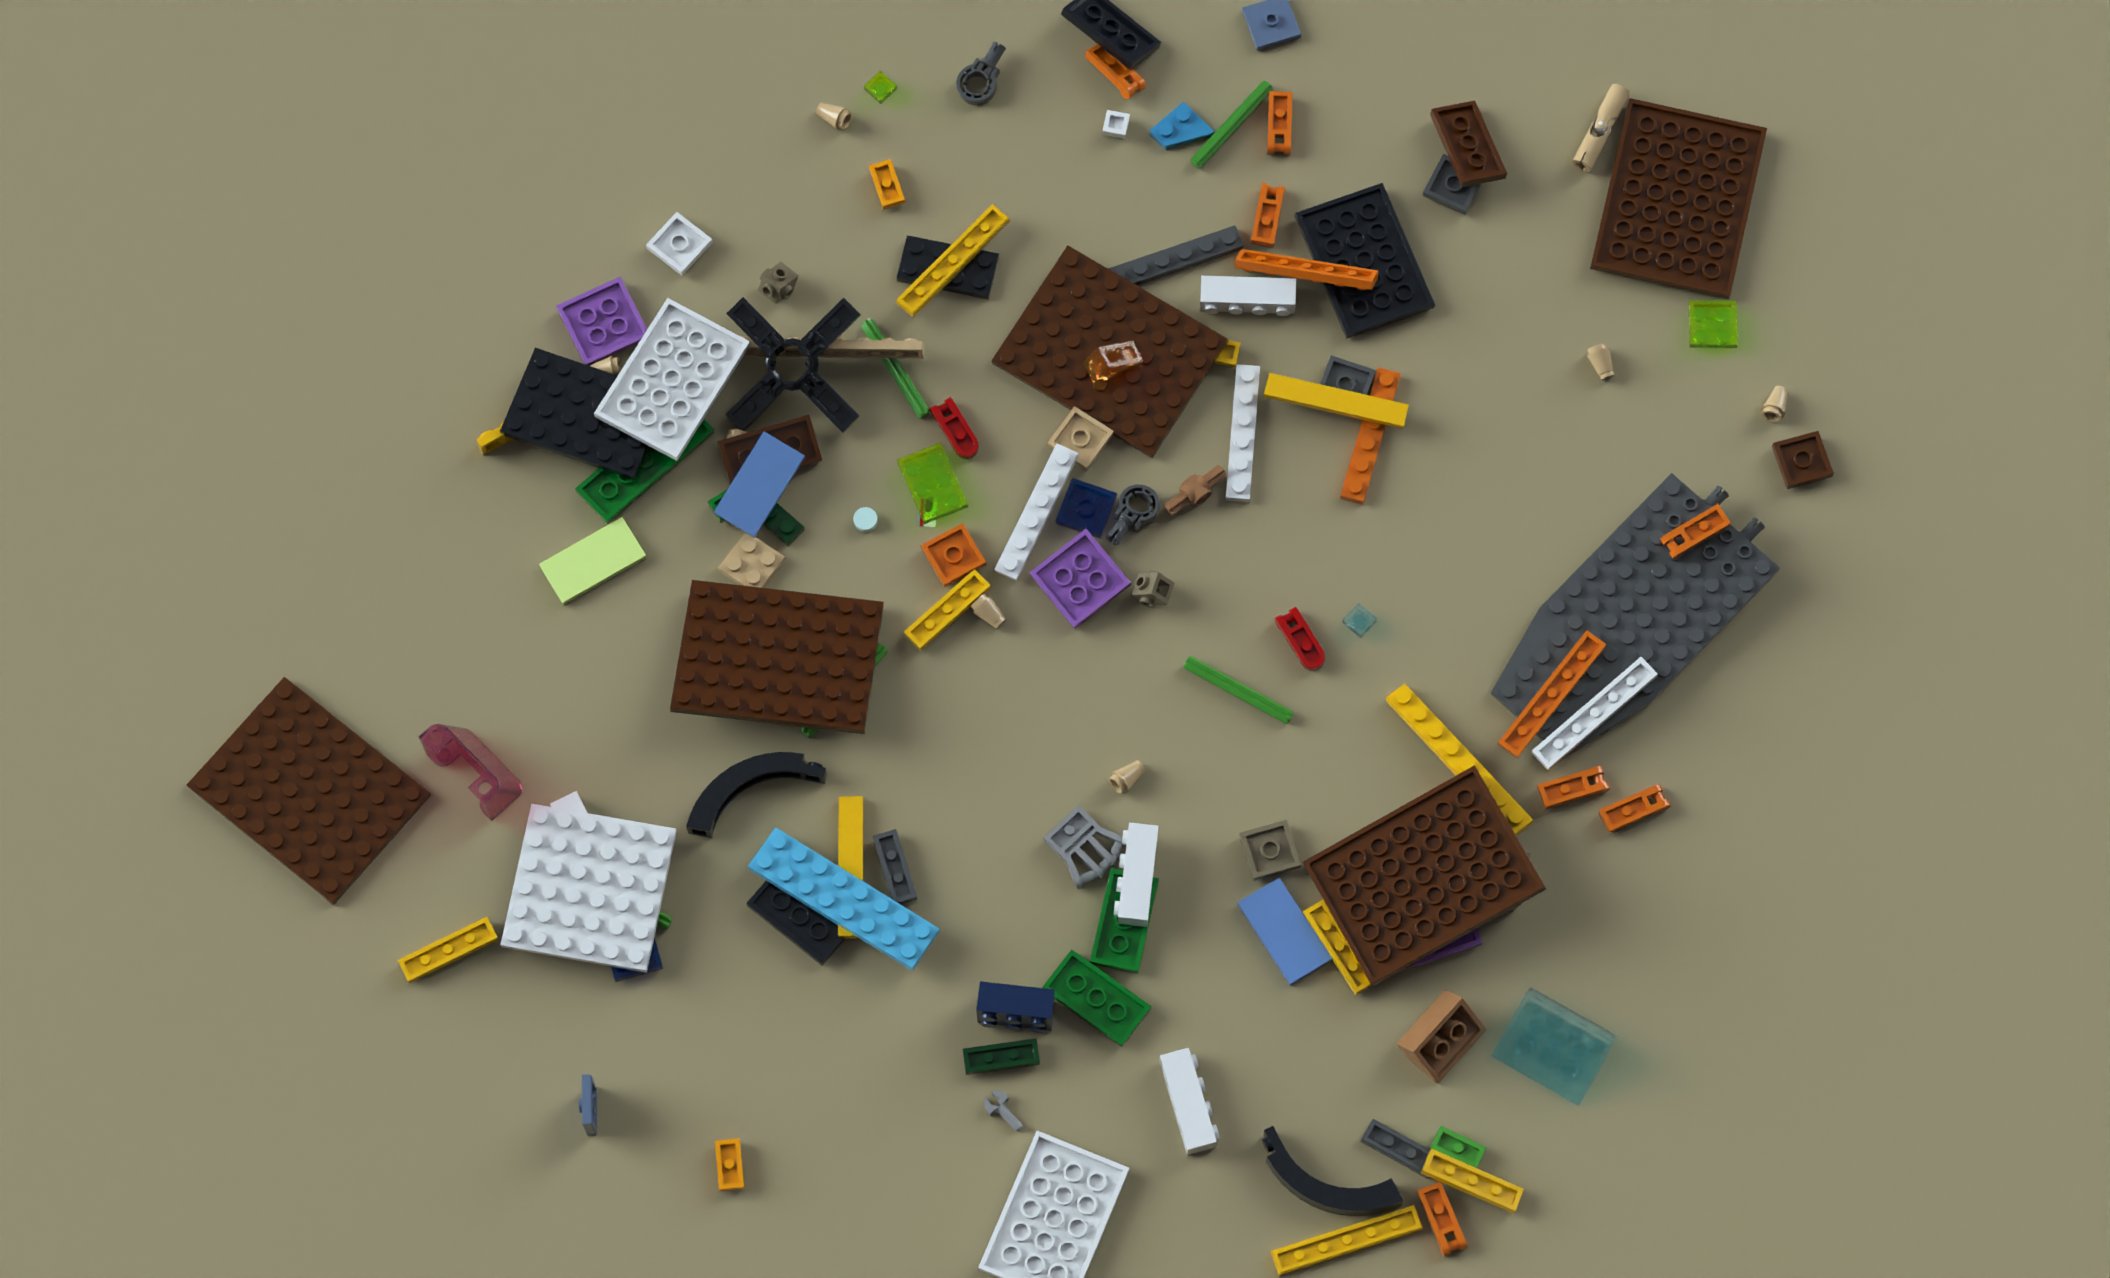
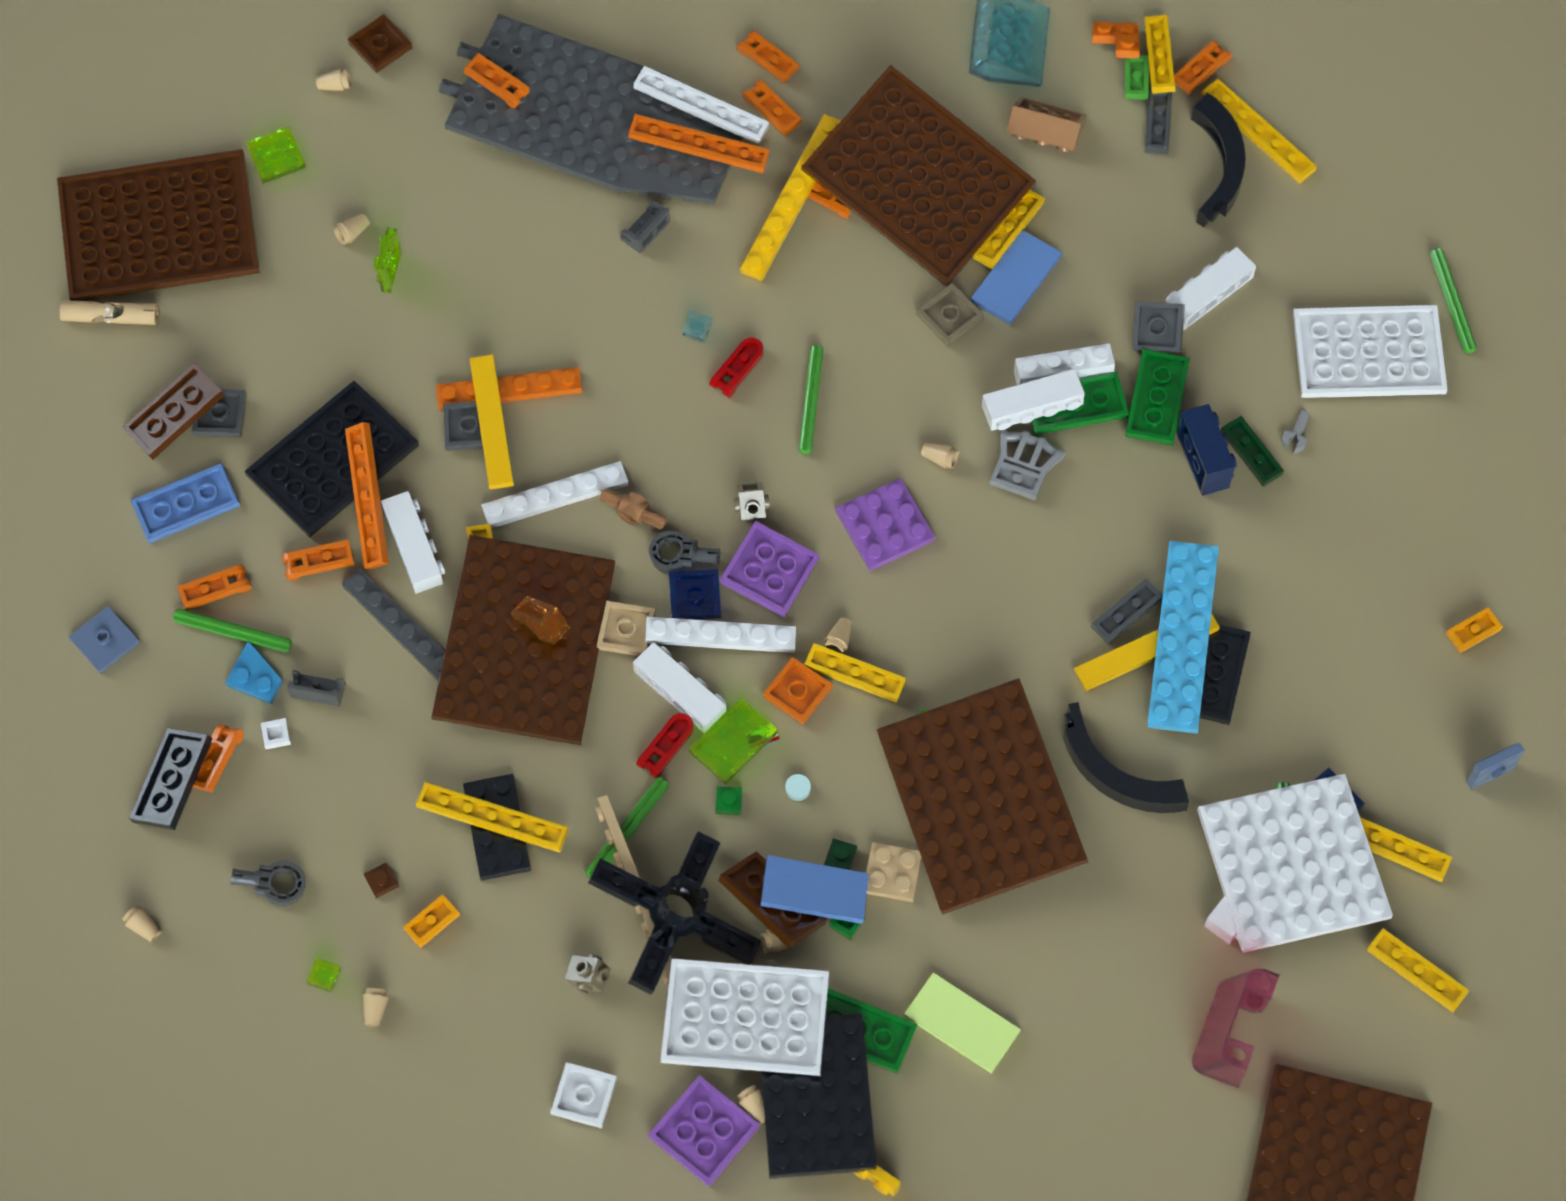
camera: 115 degrees left, 5 degrees down
(558, 993) = (1406, 851): none -> yellow plate
(881, 459) = (728, 800): none -> green plate
(944, 161) = (381, 880): none -> reddish brown plate
(1001, 459) = (679, 687): none -> white brick
(1081, 700) = (885, 524): none -> medium lavender plate
(1143, 170) = (316, 689): none -> dark grey hinge
(1163, 924) = (1085, 360): none -> white brick
(1164, 1028) = (1158, 326): none -> dark grey plate
(1377, 129) = (185, 503): none -> medium blue tile
(1488, 618) = (646, 227): none -> dark grey hinge
(1511, 1158) = (1123, 35): none -> orange plate
(1545, 374) = (388, 260): none -> clear neon green plate

